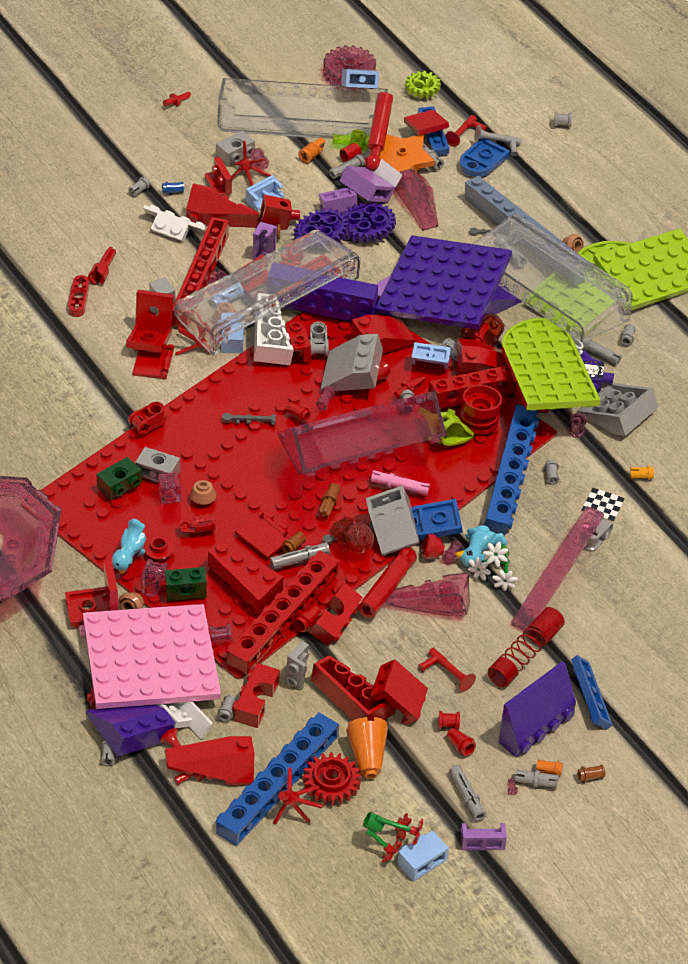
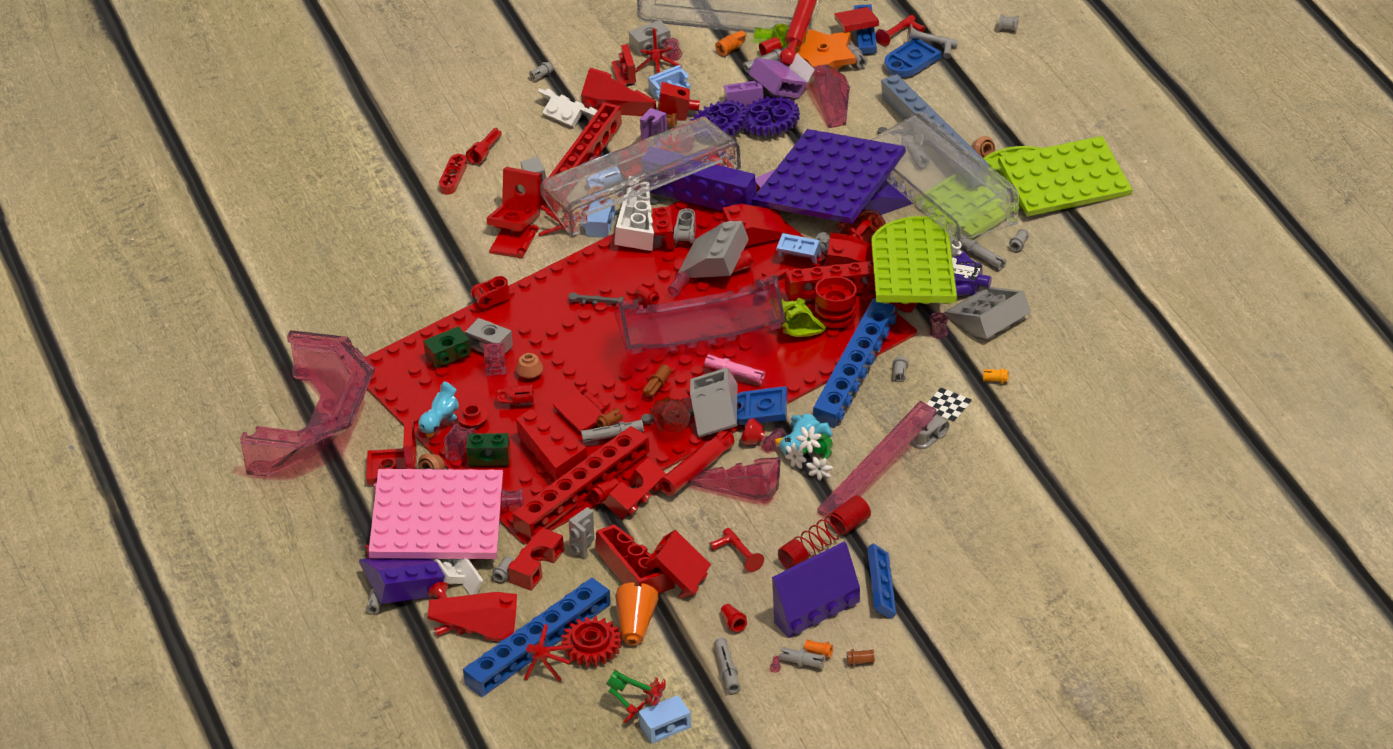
camera: 15 degrees right, 5 degrees down
(172, 187) = (575, 73): blue pin -> none
(449, 720) = (726, 596): red bush -> none
(483, 838) = (731, 710): medium lavender hinge -> none

